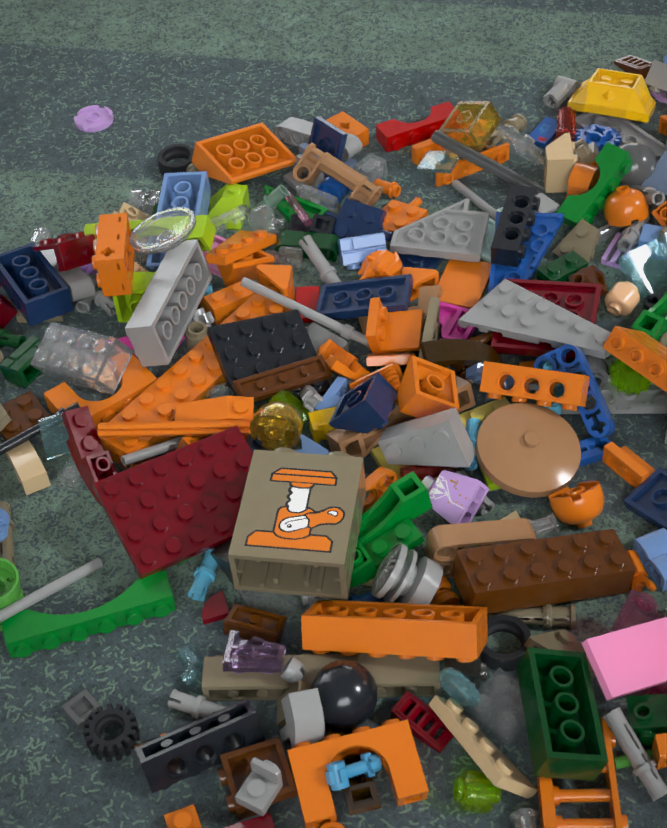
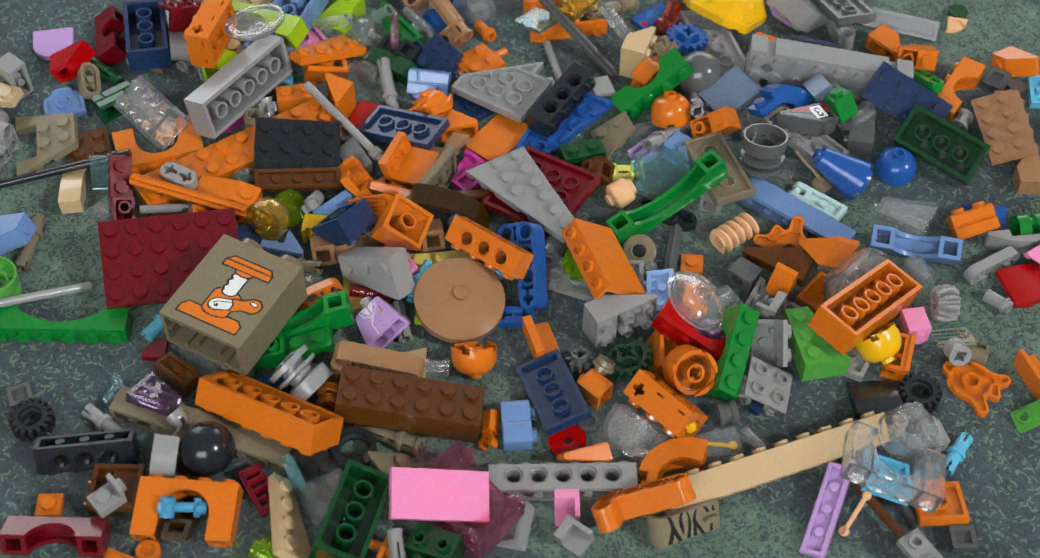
camera: 15 degrees right, 5 degrees up
(150, 410) = (180, 173): none -> light grey beam
(616, 274) = (629, 175): none -> light yellow bush

